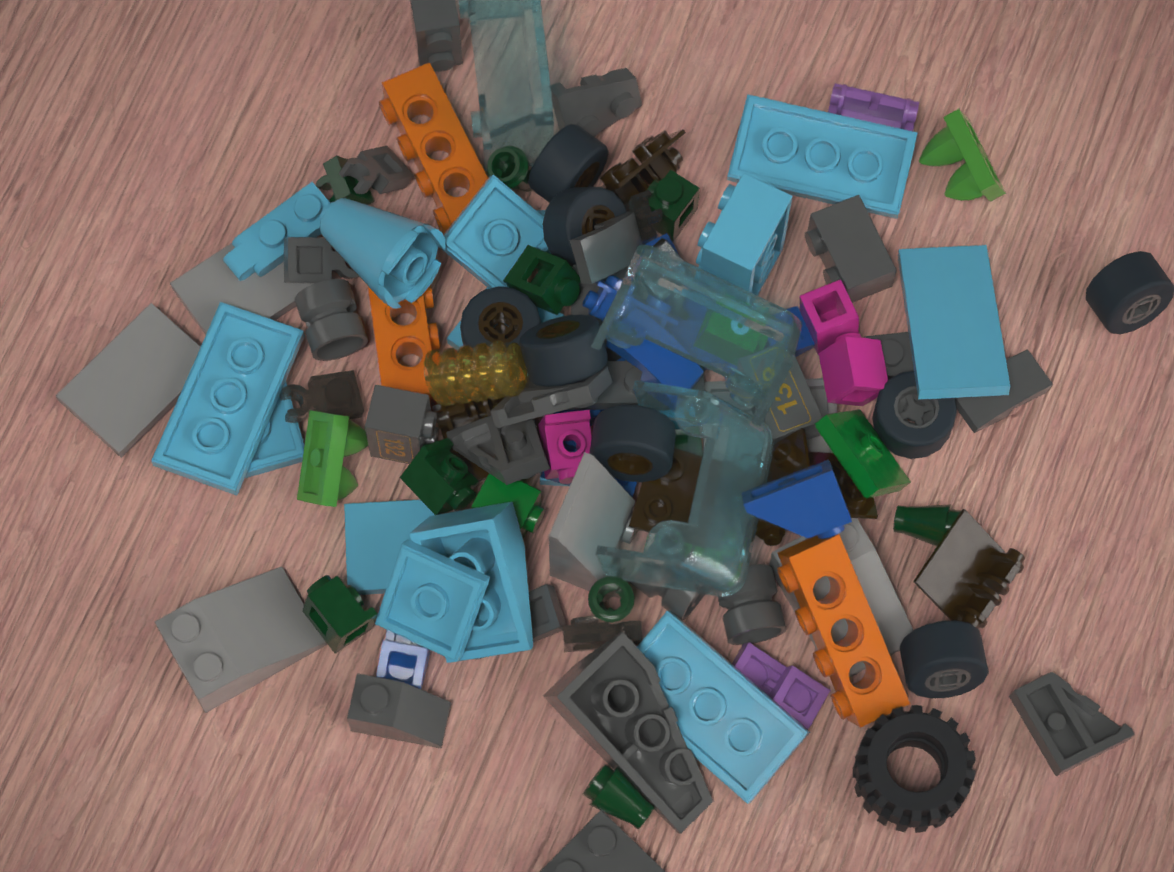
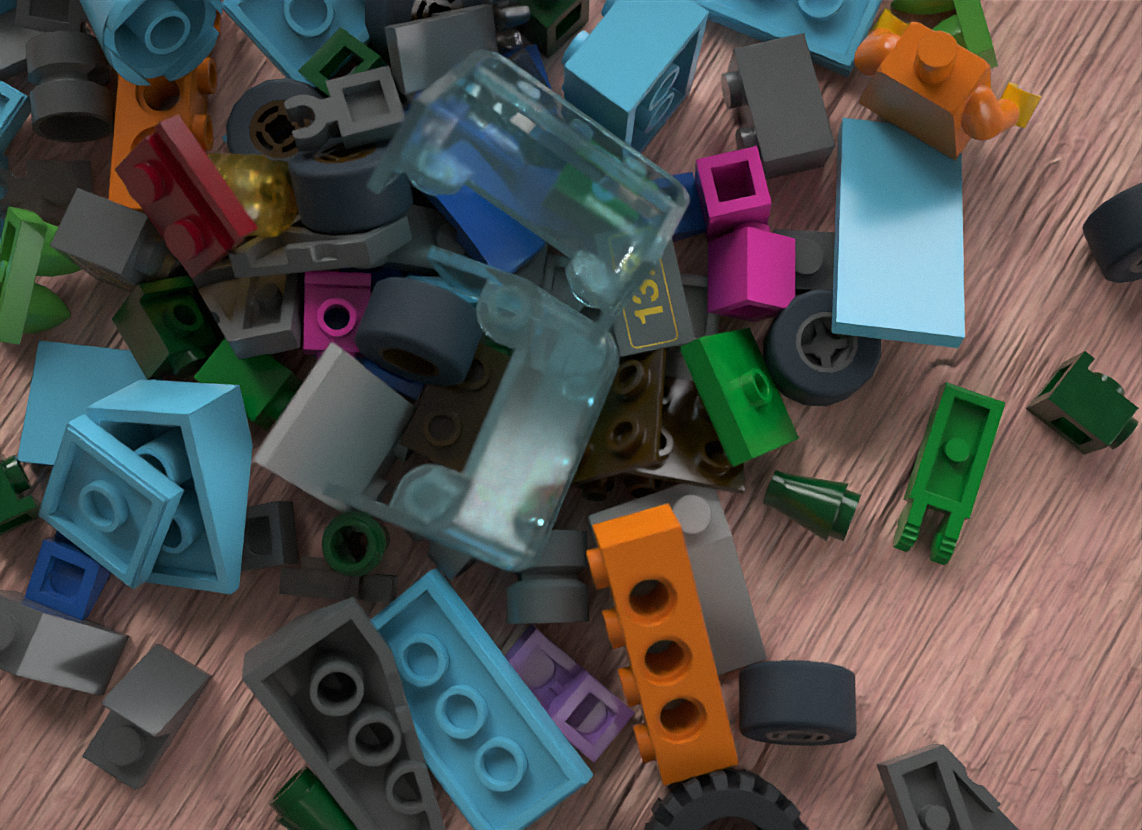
camera: 10 degrees right, 10 degrees up
(457, 377) = (185, 197): none -> dark red plate
(478, 754) = (145, 715): none -> dark grey slope
(559, 298) = (359, 108): none -> dark grey plate
(802, 502) = (634, 469): blue slope -> none
(959, 218) = (935, 87): none -> orange torso
(968, 572) = (853, 587): dark brown hinge -> none
(1022, 481) = (949, 467): none -> green hinge
(1026, 384) = (984, 330): dark grey slope -> none
(1110, 424) = (1085, 406): none -> dark green brick

